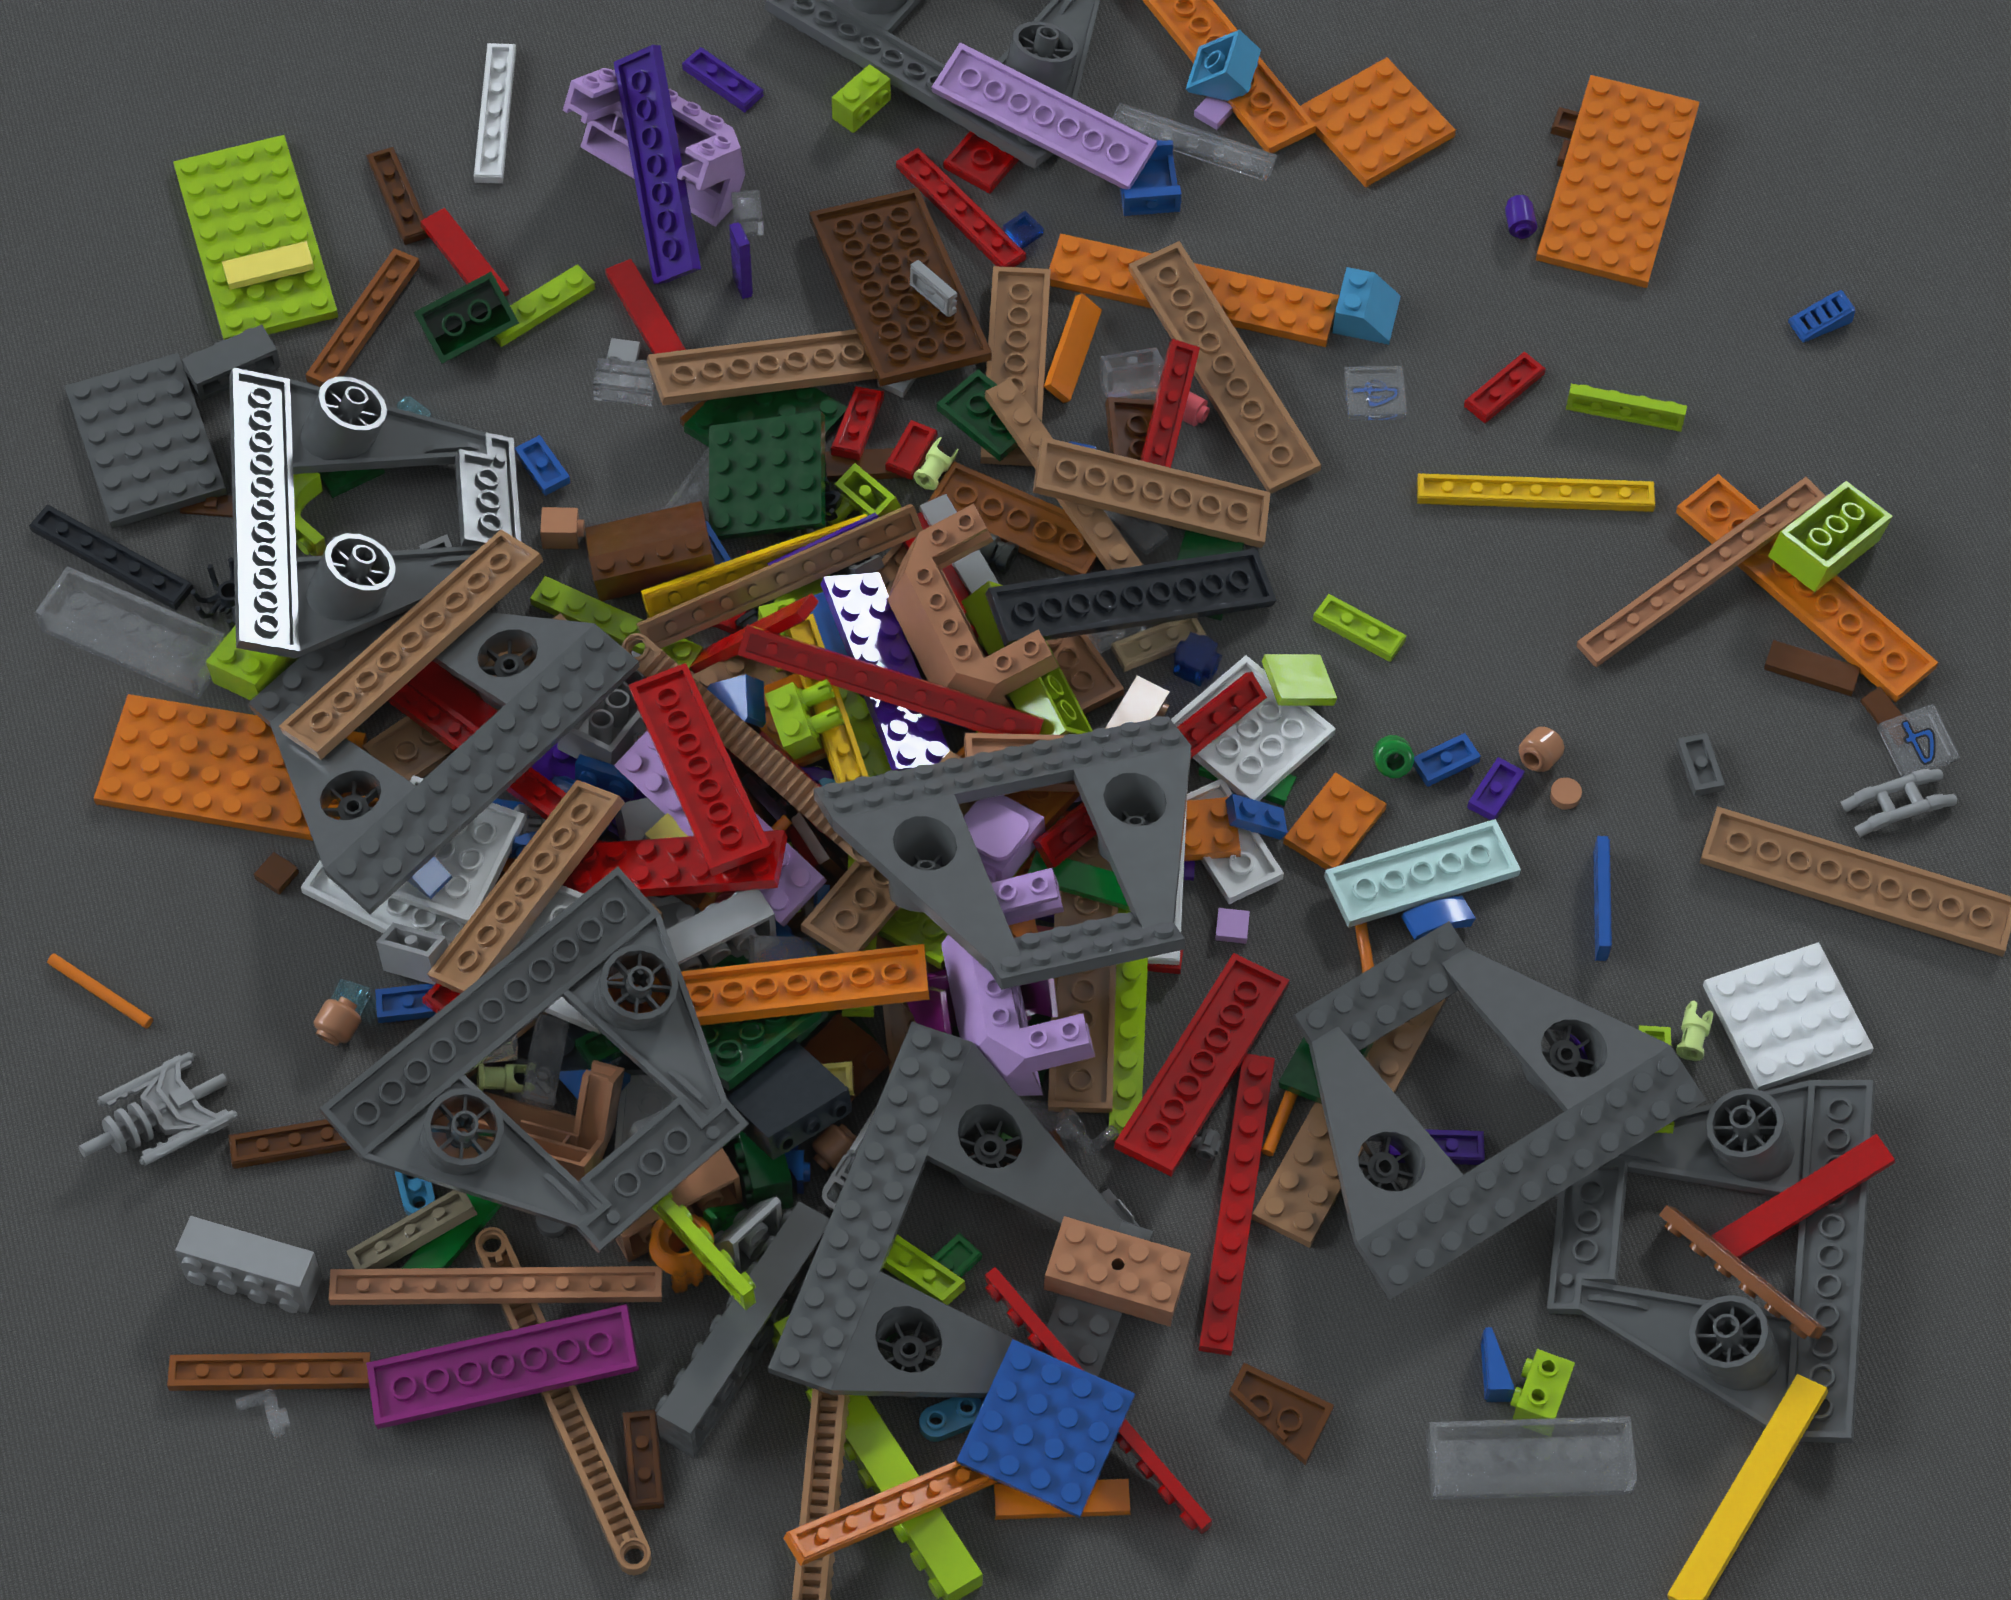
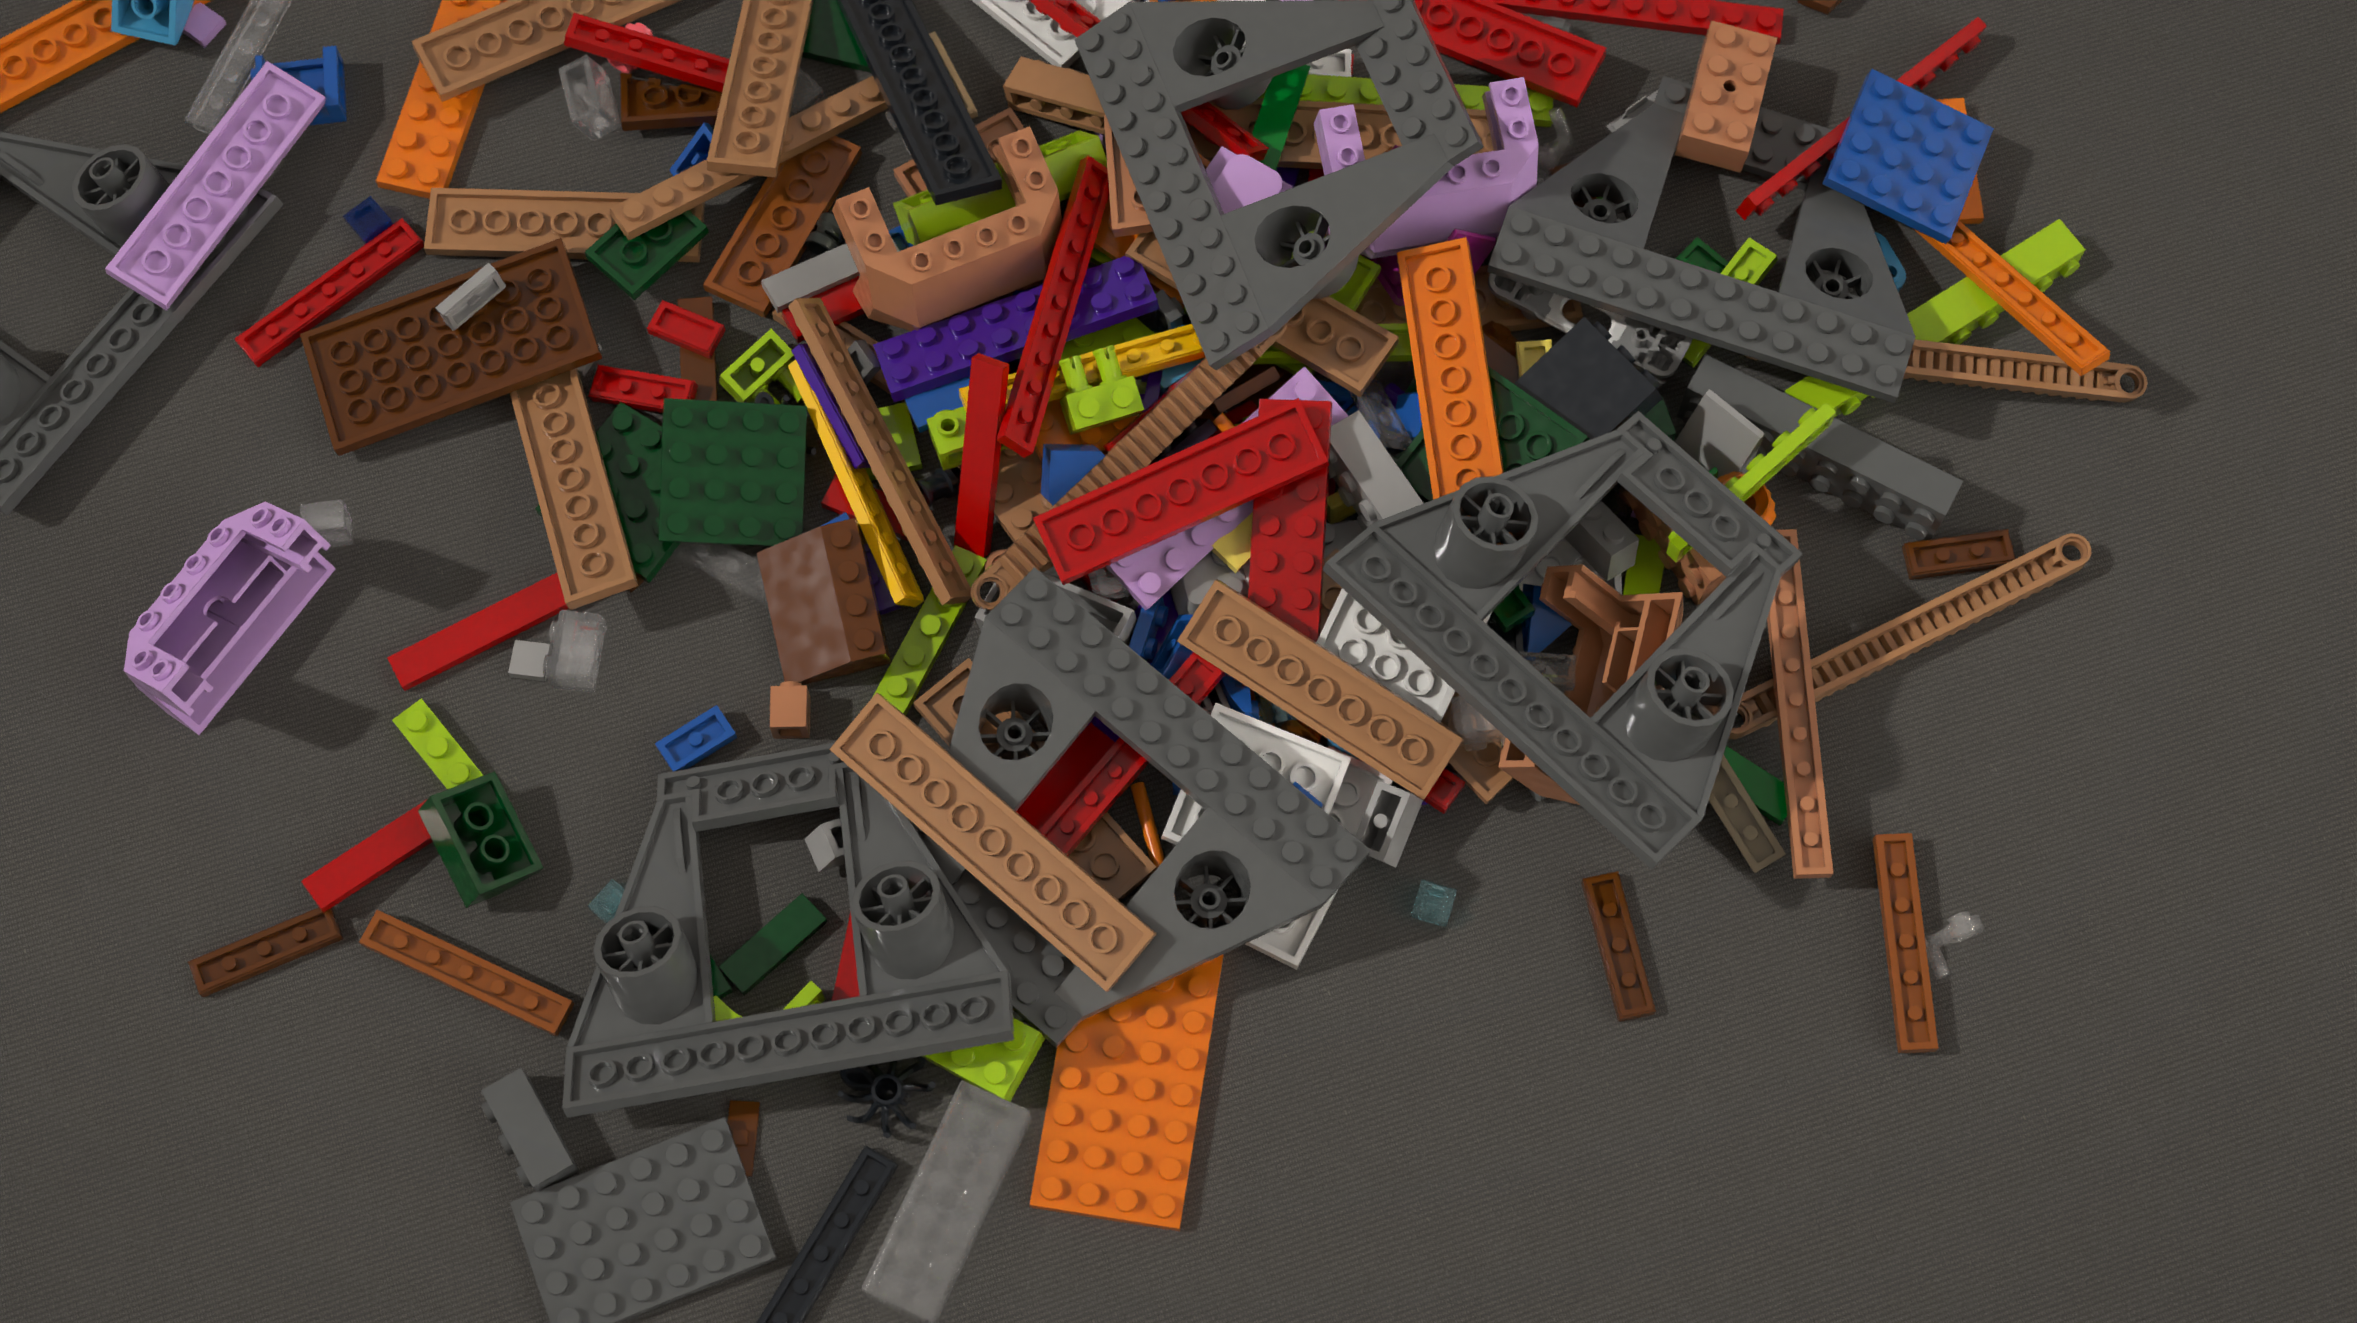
camera: 90 degrees left, 10 degrees up
(100, 990) = (1438, 1191): orange bar -> none
(166, 1108) = (1593, 1090): light grey bar -> none
(248, 1265) = (1794, 967): light grey brick -> none
(249, 204) = (324, 1127): lime plate -> none
(268, 265) = (382, 1094): light yellow tile -> none
(276, 873) = (1272, 1001): reddish brown tile -> none
(337, 1021) = (1473, 906): nougat head -> none
(364, 518) = (773, 944): none -> dark green tile
(402, 1003) = (1439, 839): blue plate -> none
(495, 113) = (137, 840): white tile -> none
(502, 1366) = (1887, 690): magenta plate -> none
(656, 164) = (273, 605): dark purple plate -> none
(722, 79) = (106, 569): dark purple tile -> none
(741, 260) = (417, 512): dark purple tile -> none
(861, 98) = (157, 400): lime brick -> none
(935, 465) = (711, 299): yellowish green piece -> none
(979, 162) = (260, 273): red tile -> none
(1072, 348) = (544, 165): orange tile -> none
(1196, 659) = (969, 37): clear blue brick -> none

